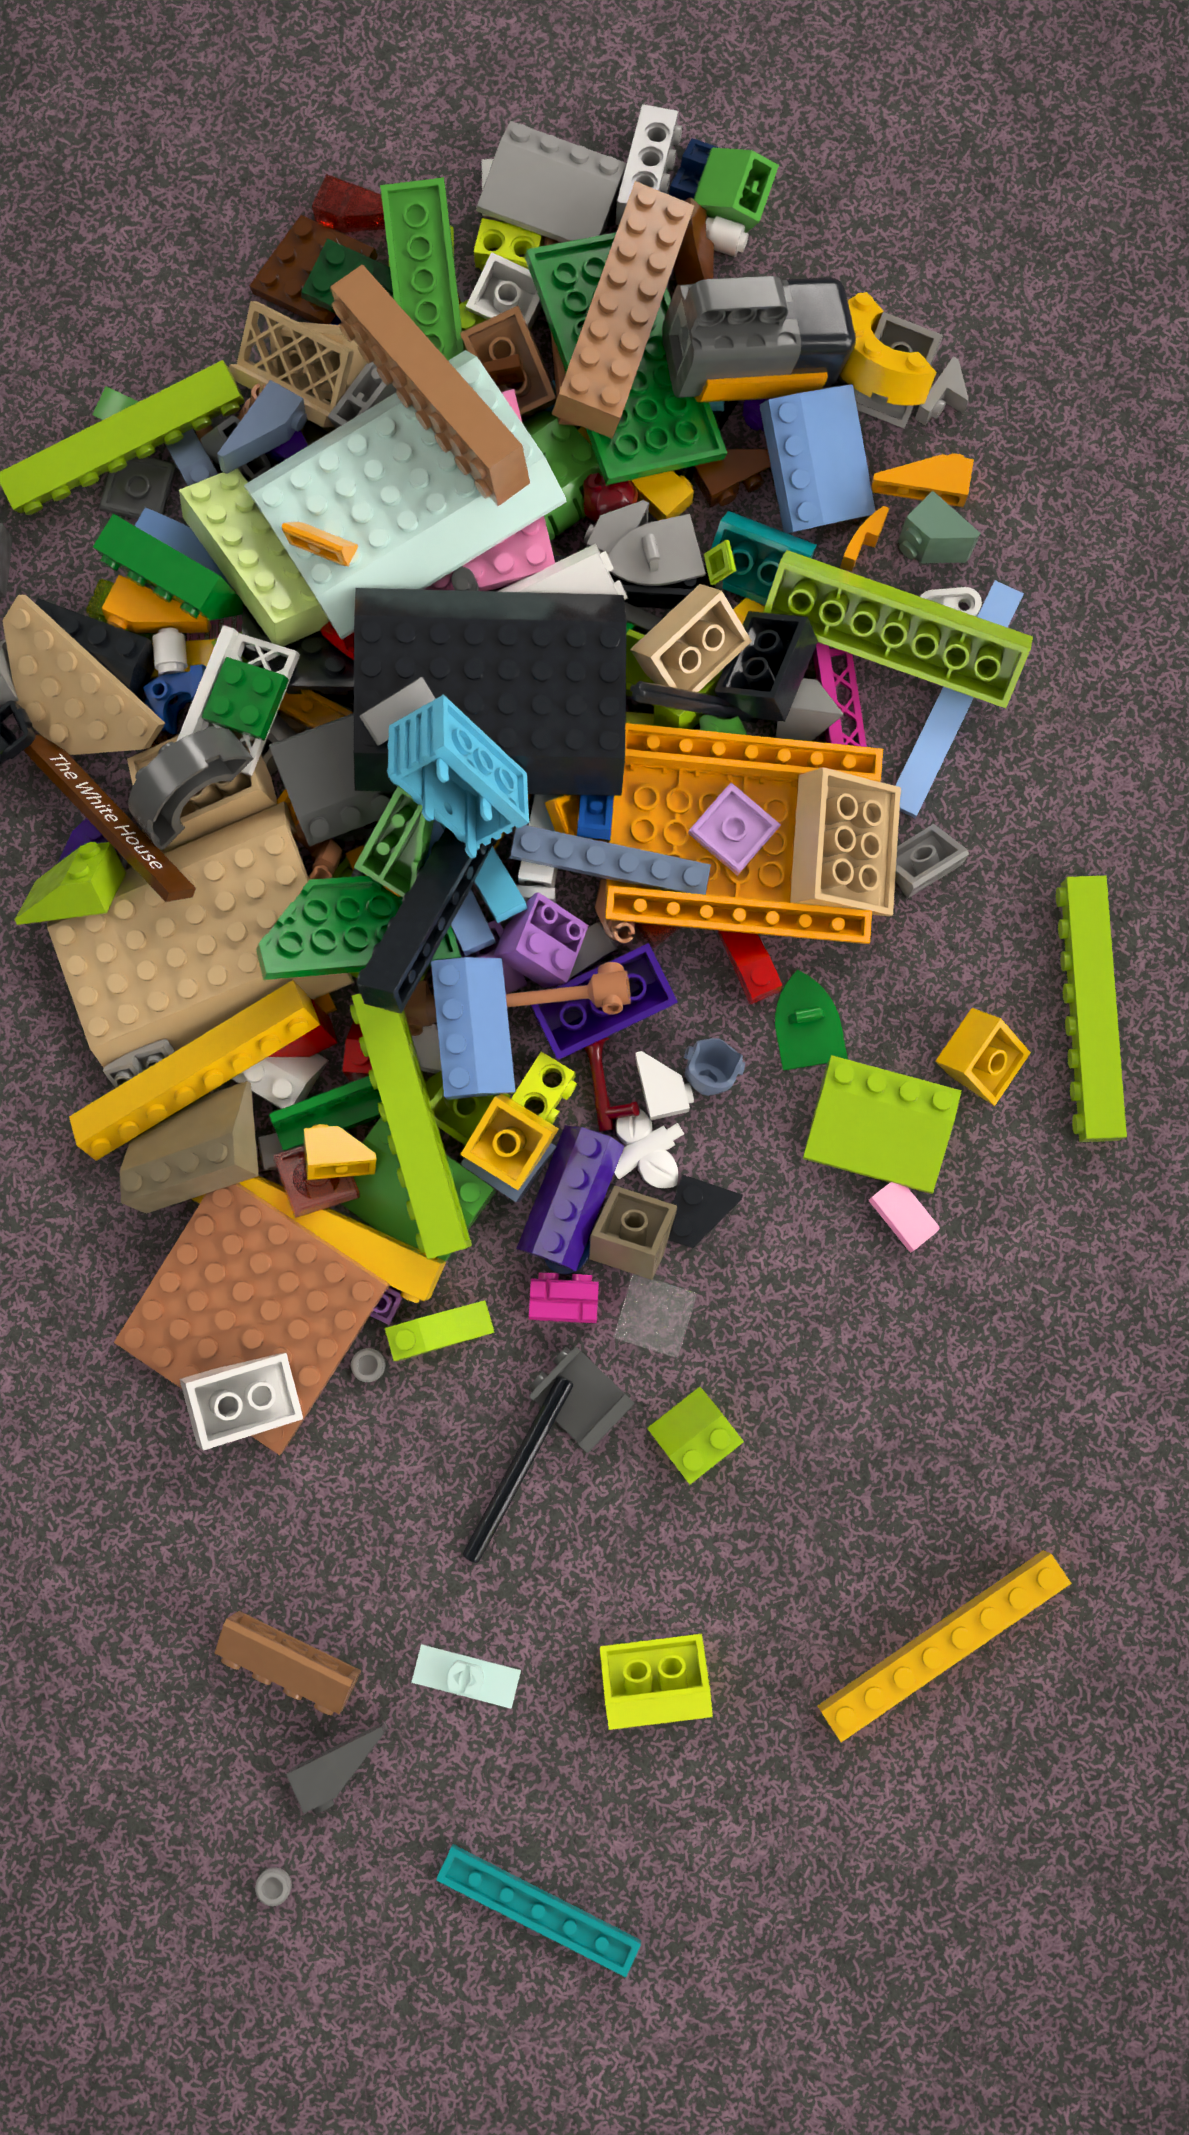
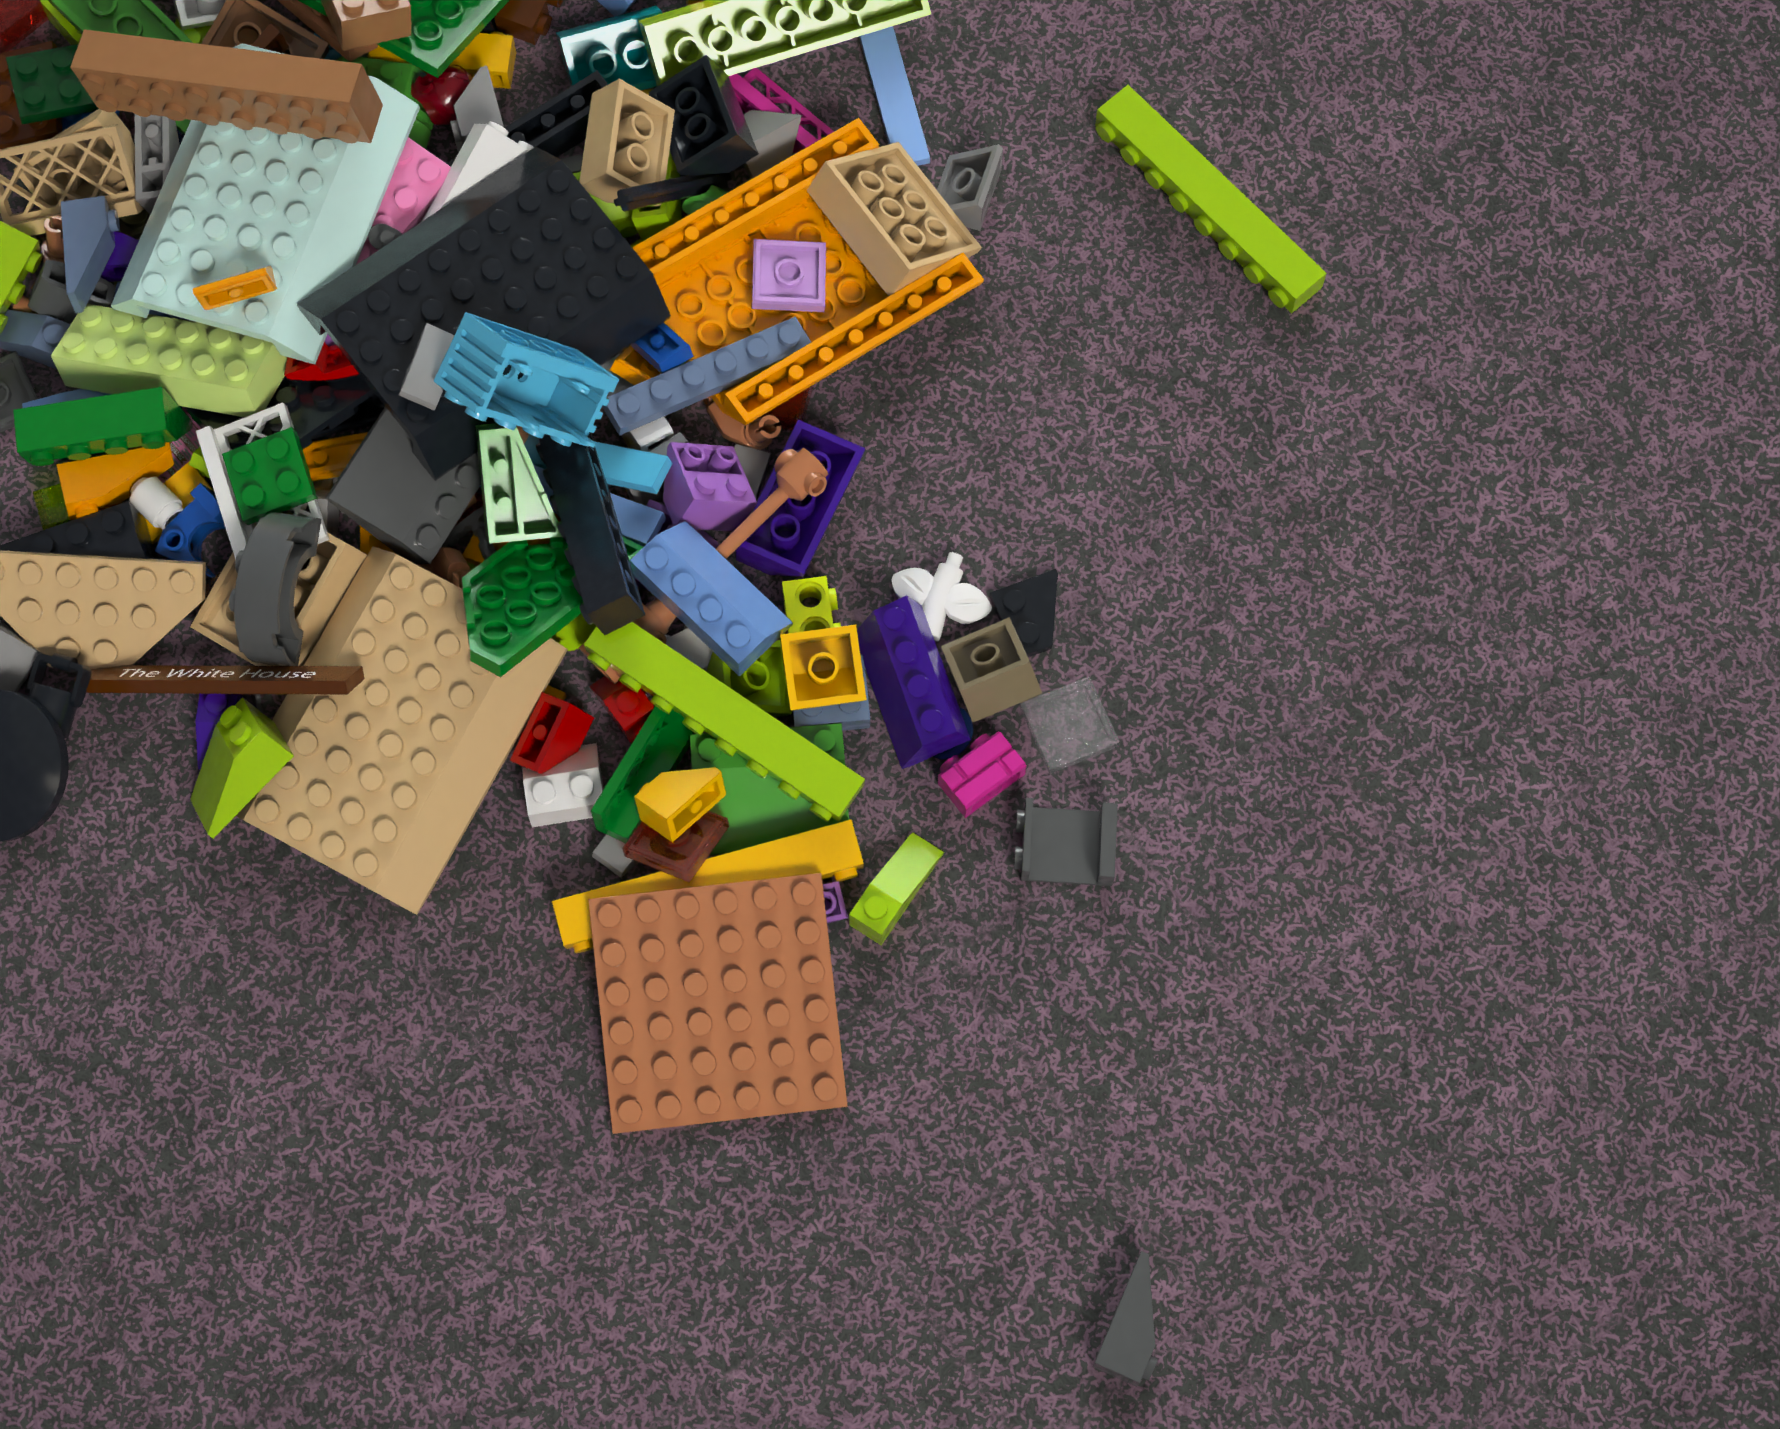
camera: 45 degrees left, 10 degrees down
(137, 1061) = (430, 877): light grey slope -> none
(192, 1152) = (545, 900): dark tan slope -> none
(194, 1070) = (488, 834): yellow brick -> none
(241, 1400) = (774, 1077): white slope -> none
(287, 1662) = (1012, 1270): medium nougat slope -> none
(368, 1365) = (858, 968): light grey tile -> none
(466, 1676) = (1174, 1158): light aqua piece -> none
(518, 1469) = (1066, 946): black axle -> none
(539, 1910) = (1409, 1296): teal plate -> none
(603, 1110) = (876, 594): dark red piece -> none
(655, 1681) = (1338, 1021): neon yellow slope -> none
(658, 553) = (534, 97): light grey shield -> none
(662, 1088) = (909, 534): white slope -> none
(695, 1435) = (1190, 793): lime slope -> none
(712, 1066) = (939, 483): sand blue cap -> none
(719, 562) = (592, 66): lime slope -> none
(751, 965) = (896, 377): red slope -> none
(807, 1024) = (987, 393): green shield -> none
(881, 1124) = (1119, 419): lime slope -> none
(904, 1215) = (1202, 477): bright pink slope -> none
(943, 1645) = (1542, 793): yellow brick -> none
(983, 1055) = (1153, 302): yellow slope -> none

